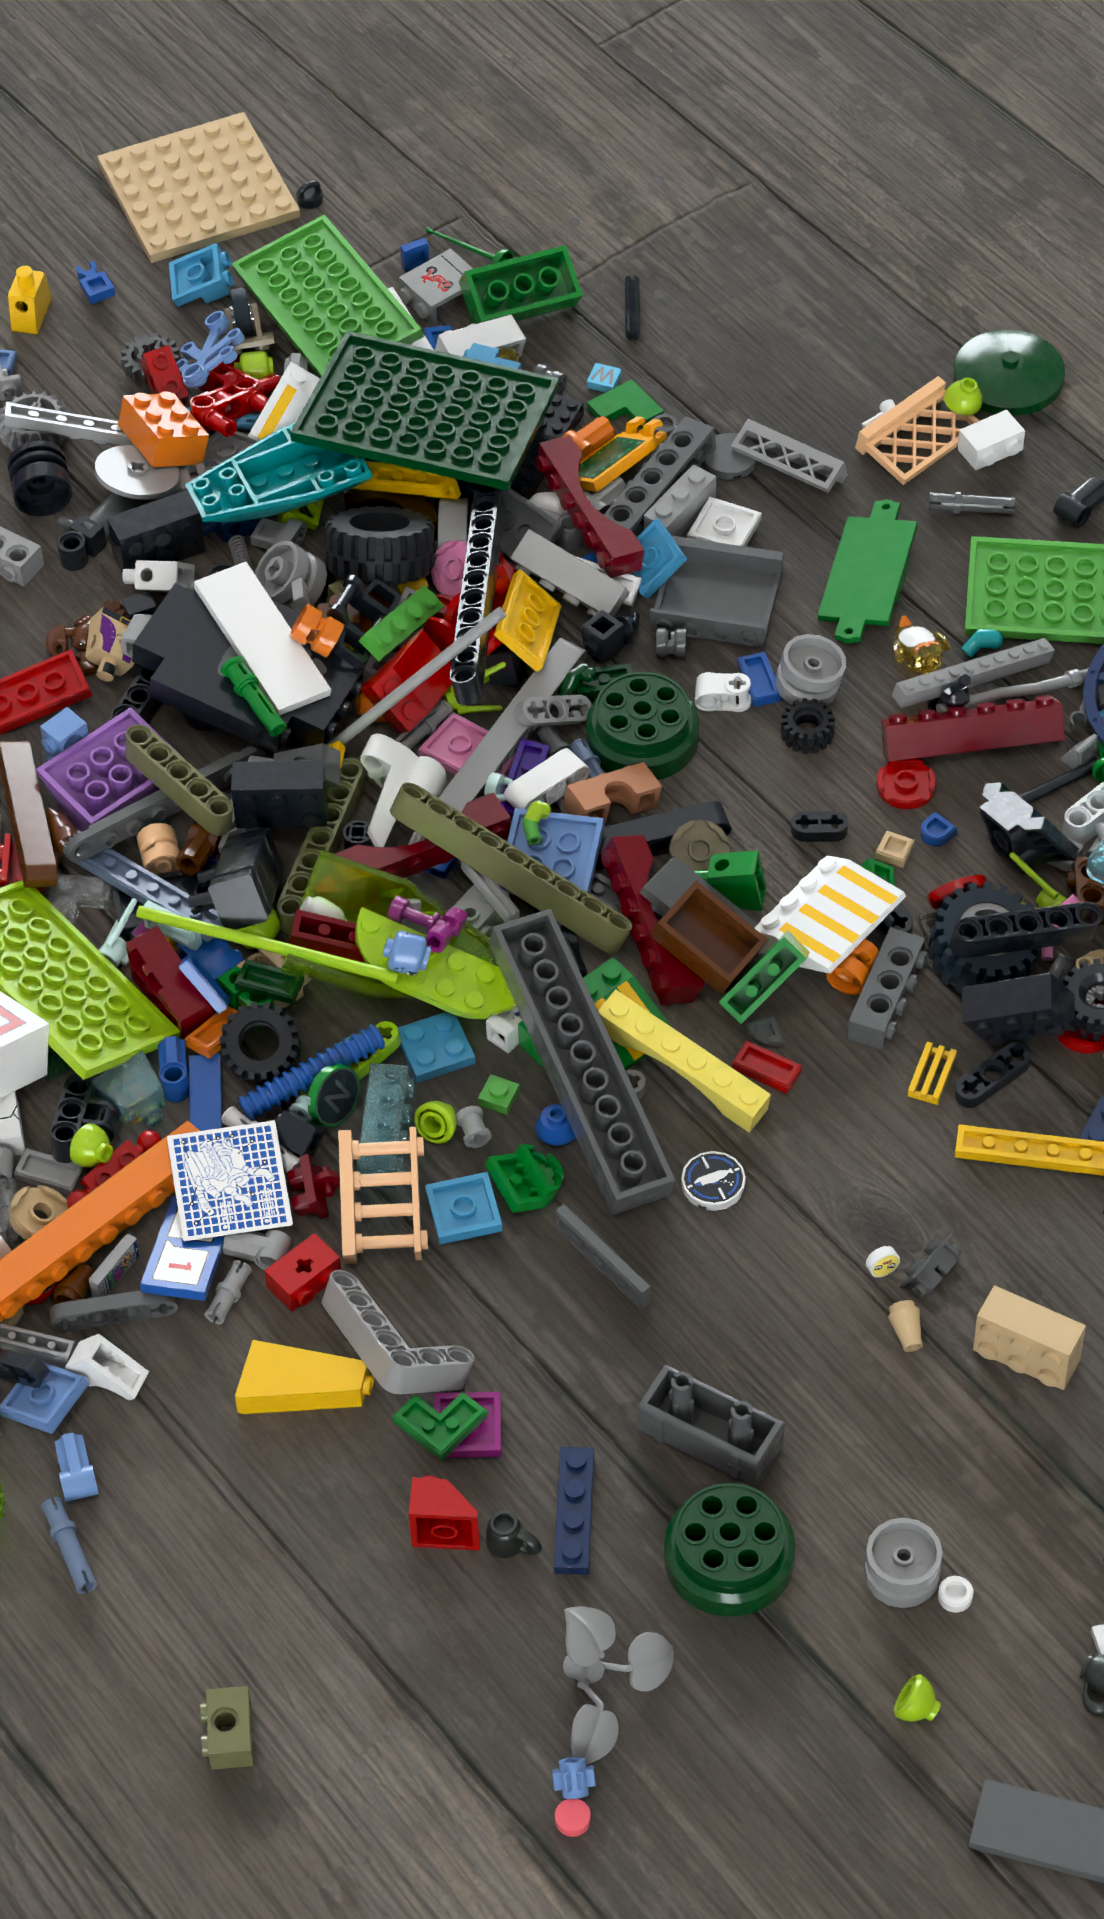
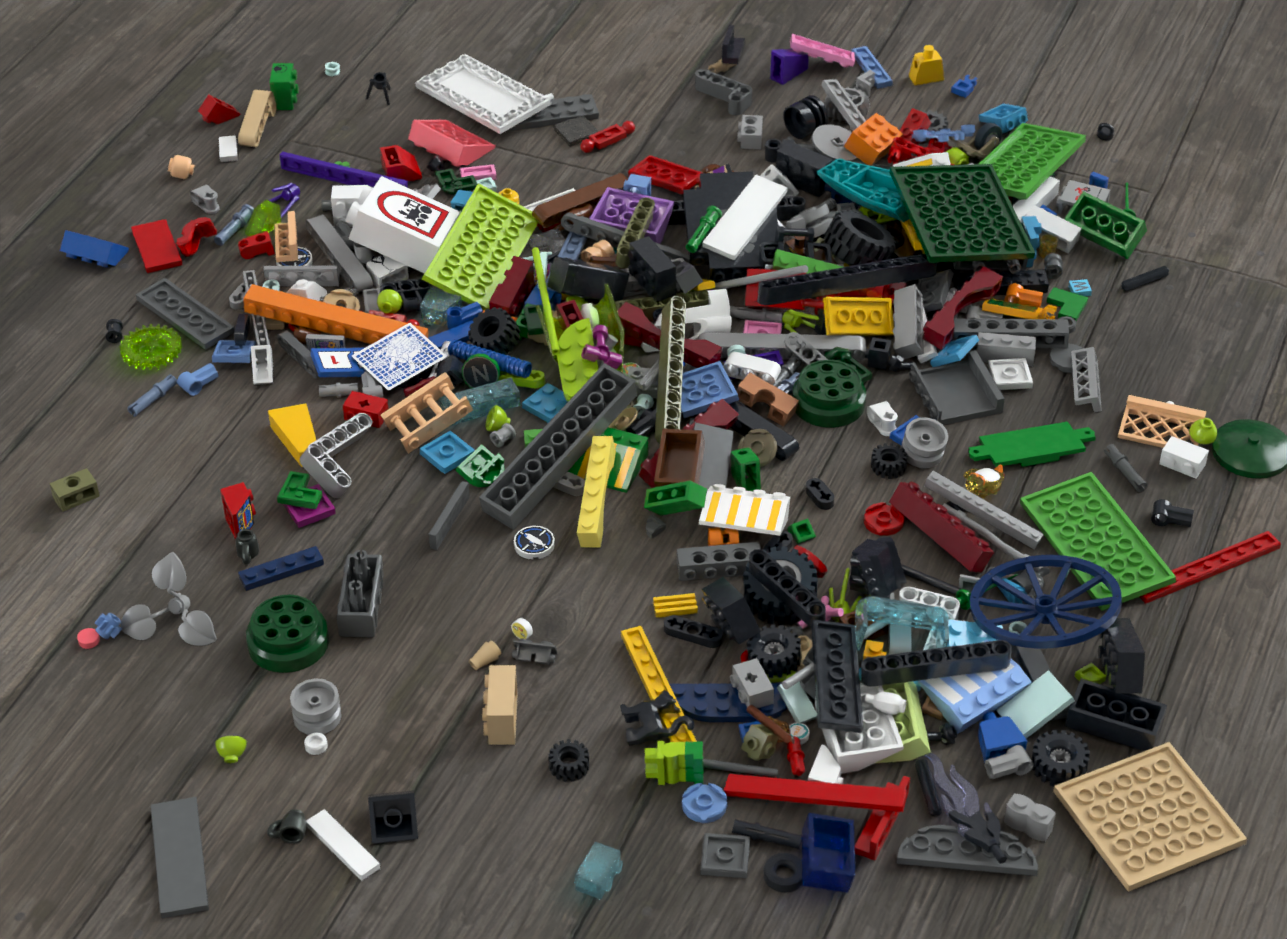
camera: 60 degrees right, 10 degrees down
(198, 187) = (1072, 94): tan plate -> none
(204, 983) = (516, 296): tile -> none
(326, 634) = (762, 228): orange wheel -> none
(407, 953) = (569, 344): medium blue head -> none
(535, 812) = (711, 368): arm -> none
(671, 642) = (902, 383): dark grey wheel -> none
(766, 1067) = (629, 536): red tile -> none
(894, 849) = (829, 531): tan tile -> none
(937, 830) = (855, 540): blue tile -> none
(957, 693) = (953, 503): black plate -> none
(982, 639) = (1020, 509): teal arm -> none

